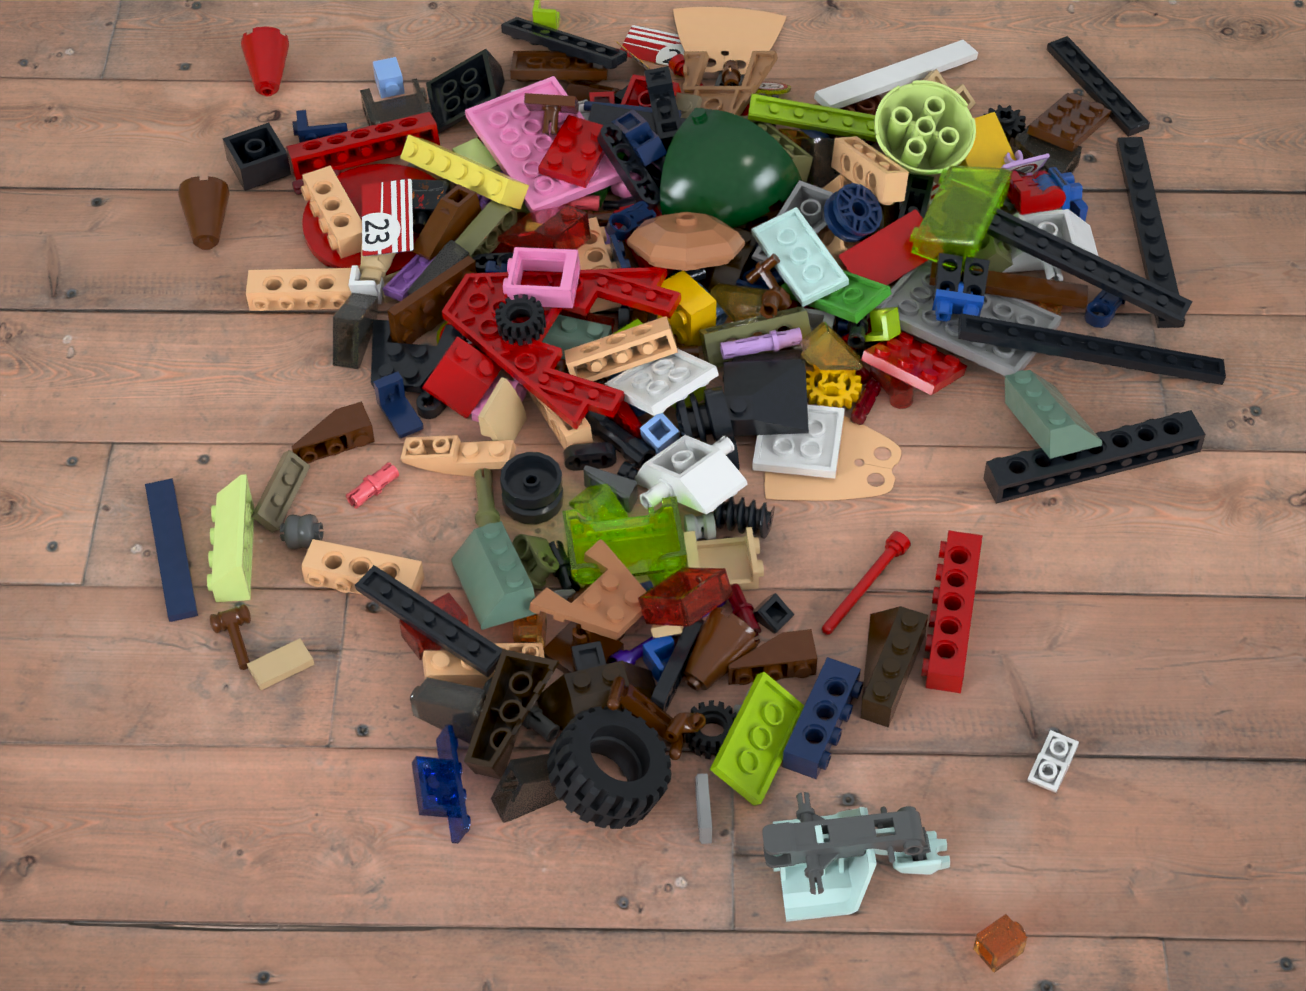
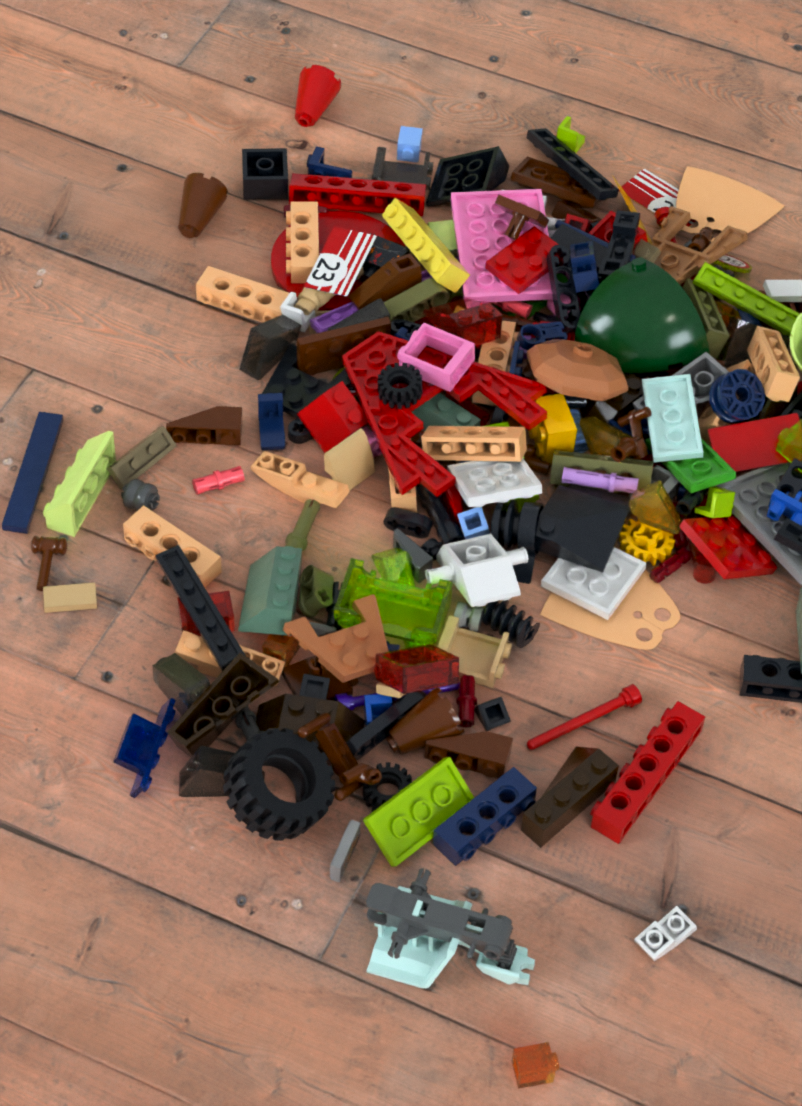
camera: 20 degrees right, 0 degrees up
(531, 488) = (343, 530): black wheel -> none

